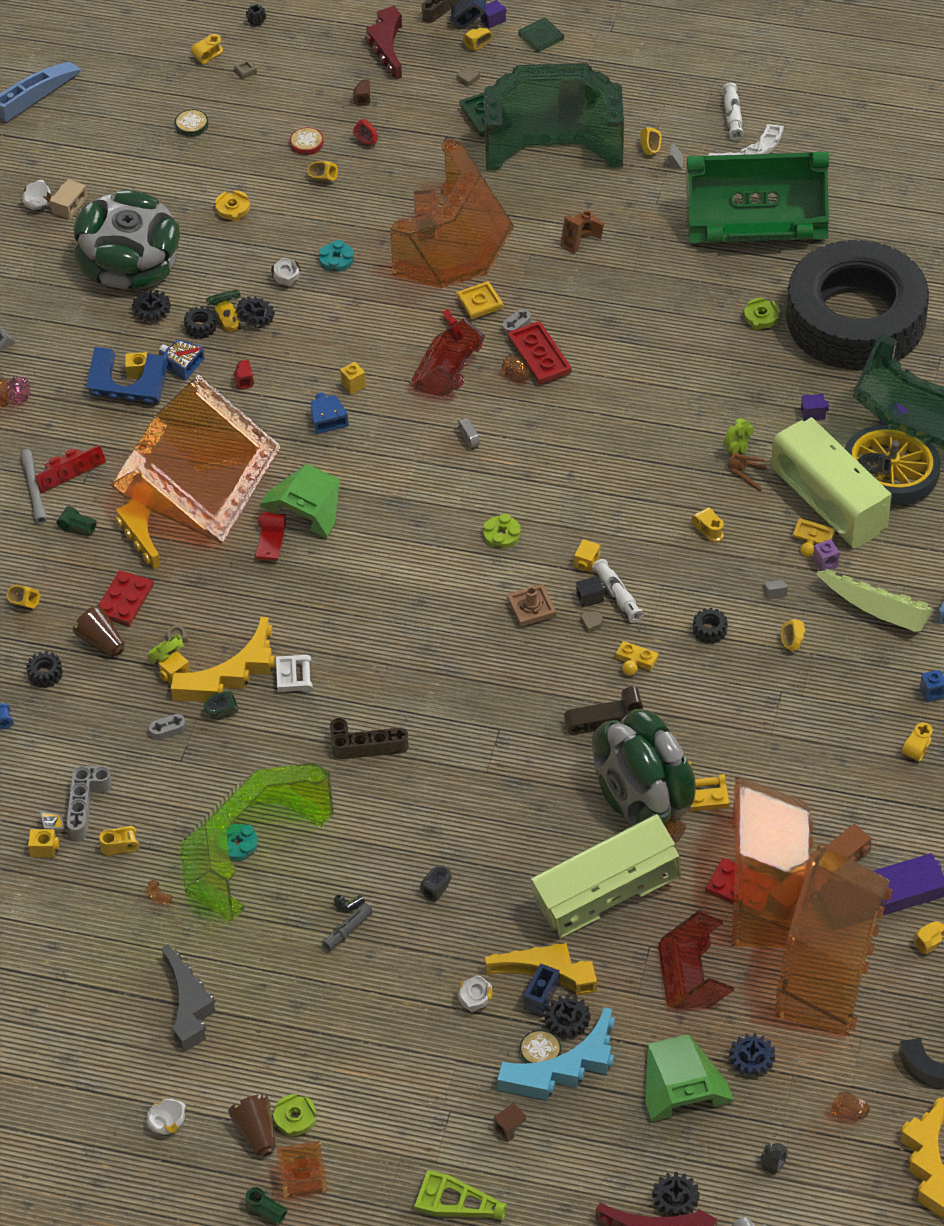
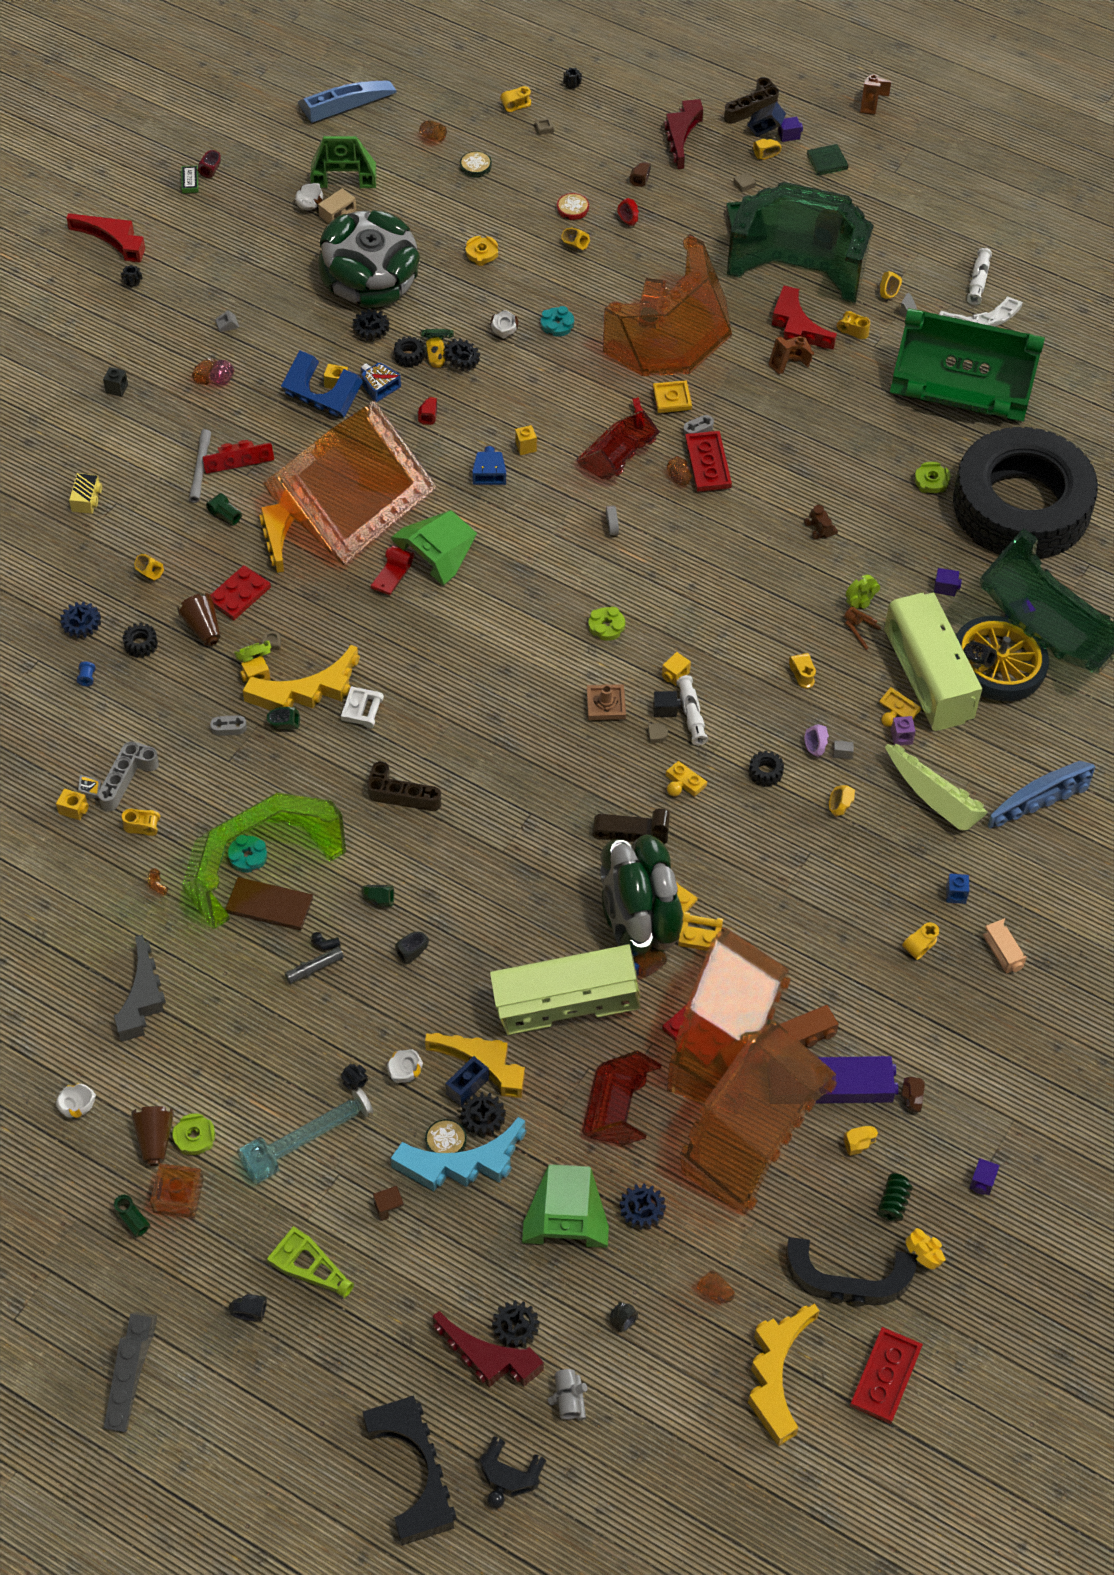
camera: 15 degrees right, 5 degrees up
(57, 146) = (343, 154): none -> bright green wedge
(135, 100) = (433, 131): none -> clear orange rock
(278, 882) = (269, 903): none -> reddish brown tile
(371, 1116) = (260, 1158): none -> clear light blue piece
(383, 843) = (379, 894): none -> dark green rock
(430, 1017) = (354, 1076): none -> black gear
(566, 194) = (792, 318): none -> red arch
(632, 187) = (855, 325): none -> yellow piece
(672, 382) = (821, 522): none -> reddish brown piece
(747, 585) = (816, 739): none -> lavender rock

